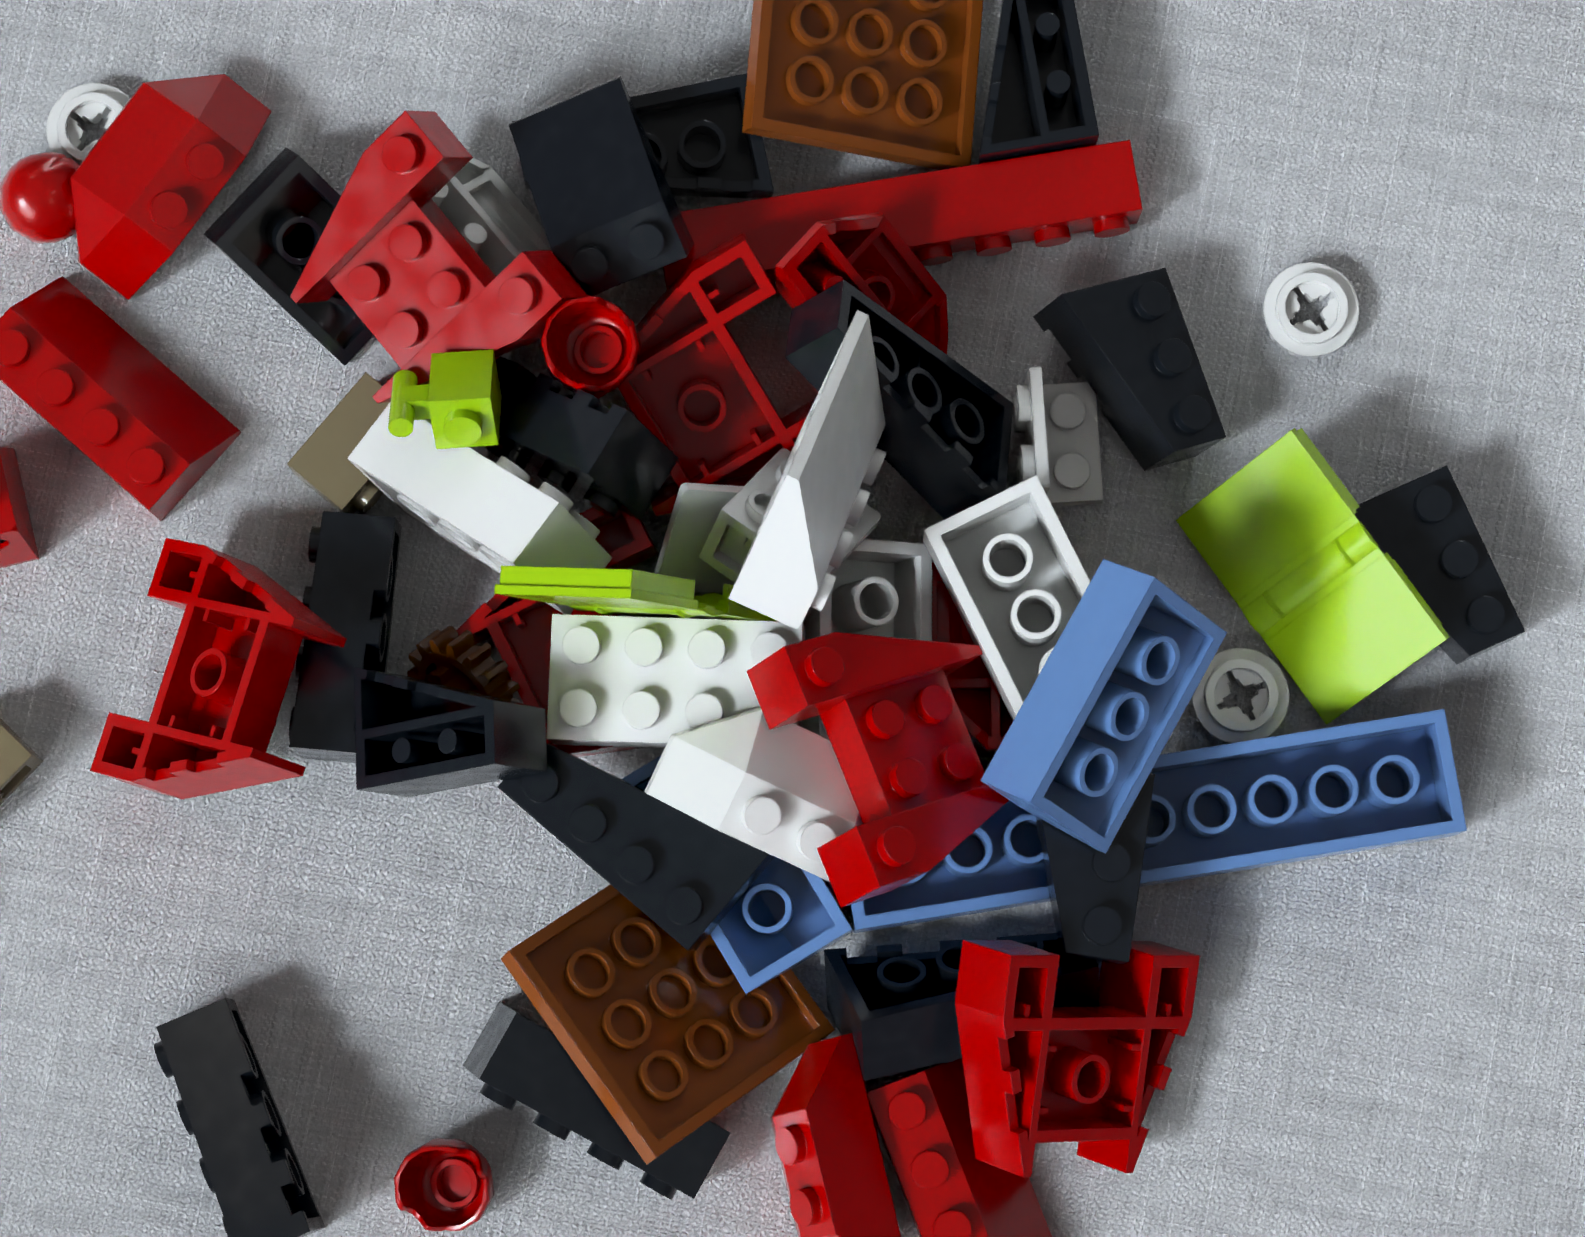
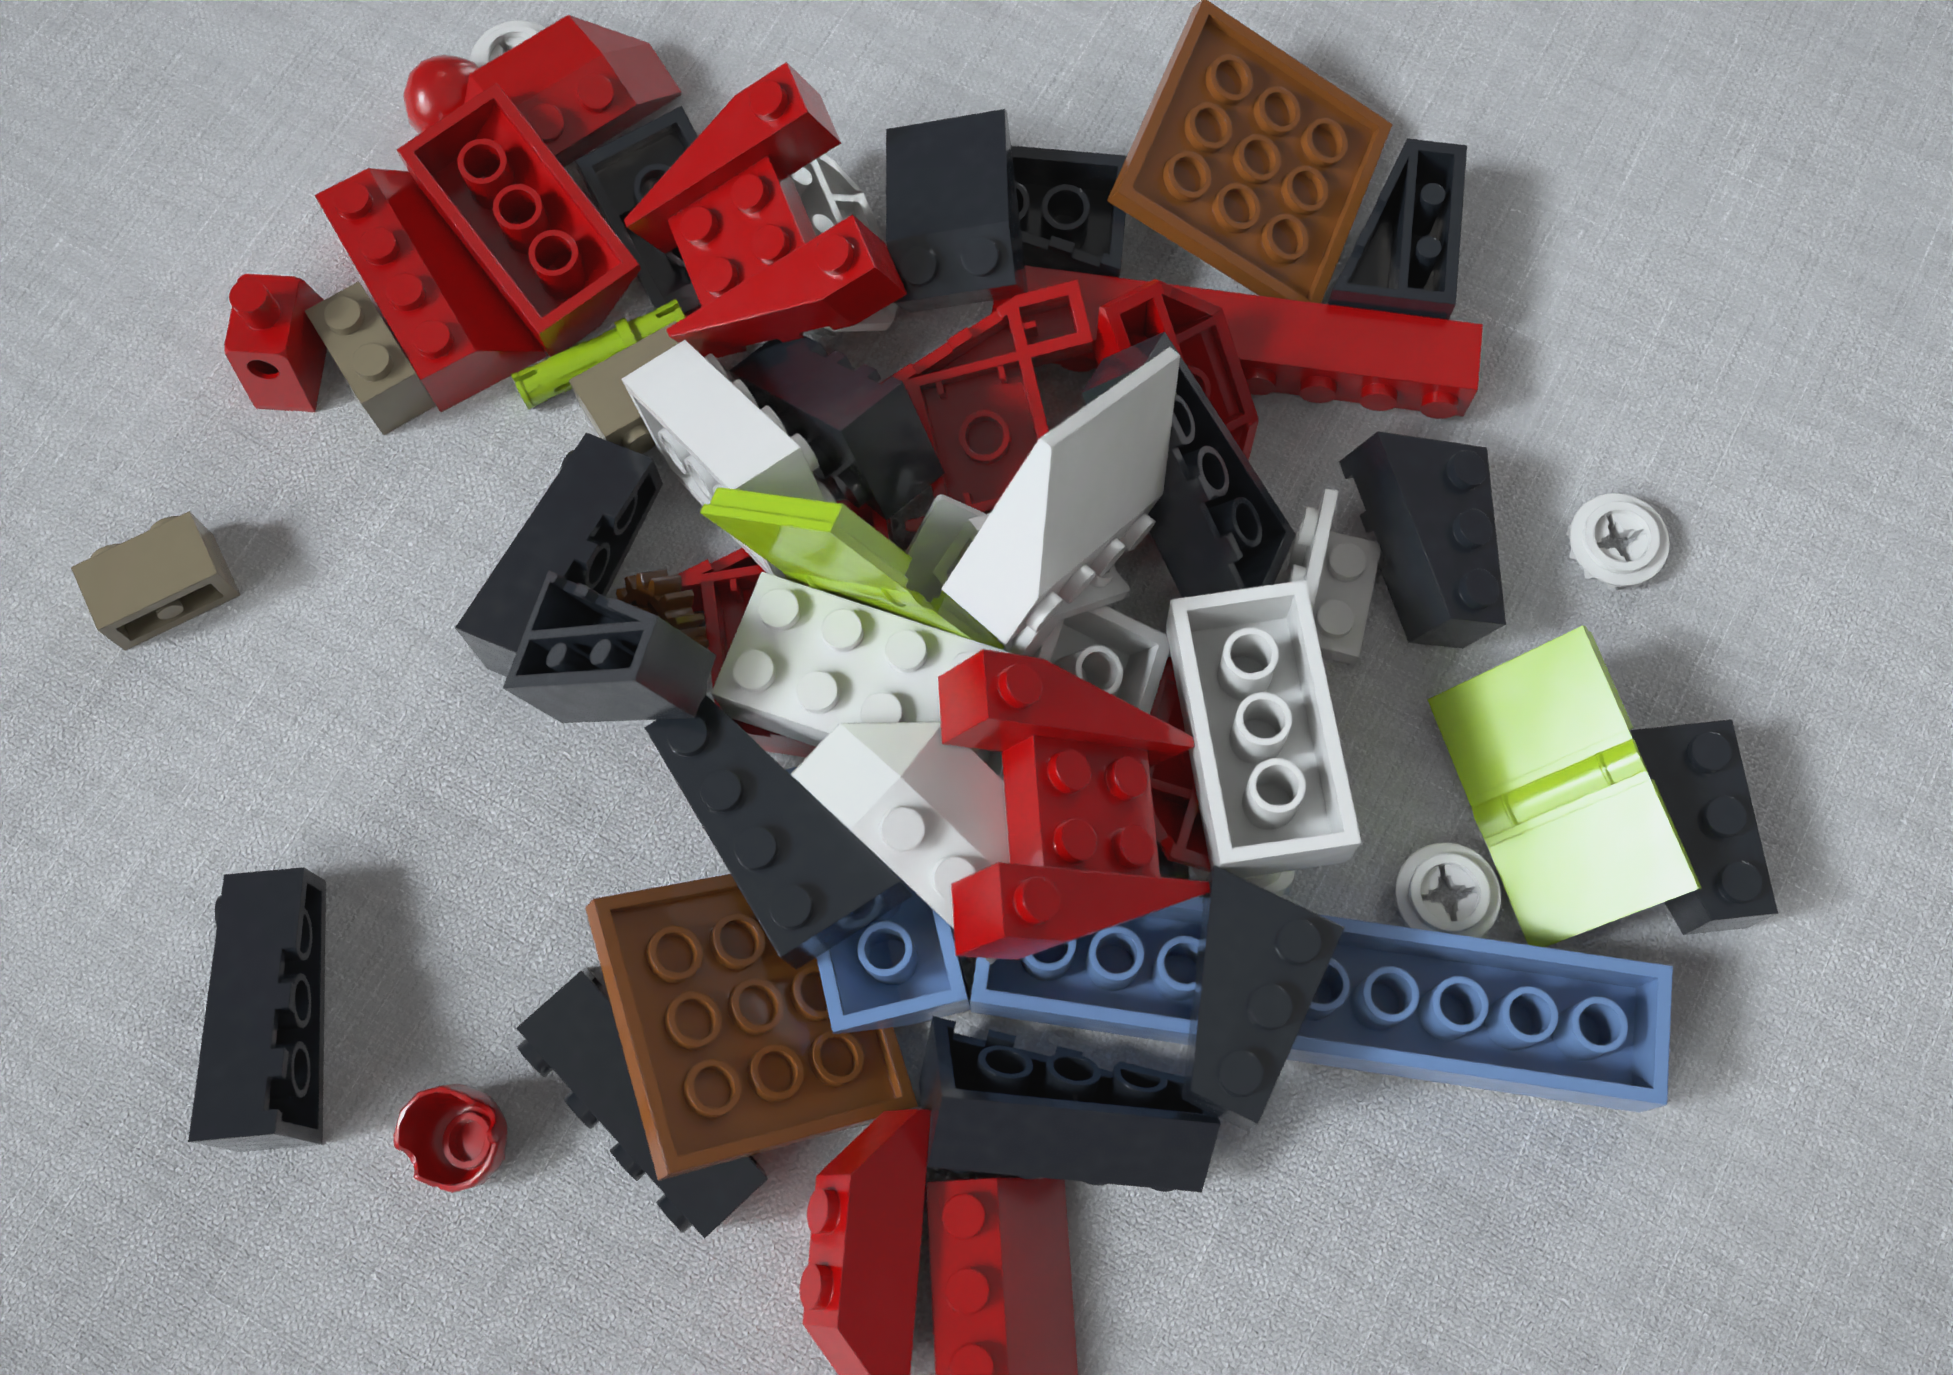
camera: 20 degrees right, 10 degrees down
(82, 494) = (370, 358): none -> dark tan brick
(180, 313) = (522, 218): none -> red slope
(219, 680) = (412, 553): red wedge -> none
(297, 419) = (552, 375): none -> lime pin
(459, 400) = (743, 340): lime brick -> none
(590, 344) = (891, 327): red hair -> none
(1066, 1070) = (1150, 1227): red wedge -> none
(1104, 704) = (1312, 829): medium blue slope -> none

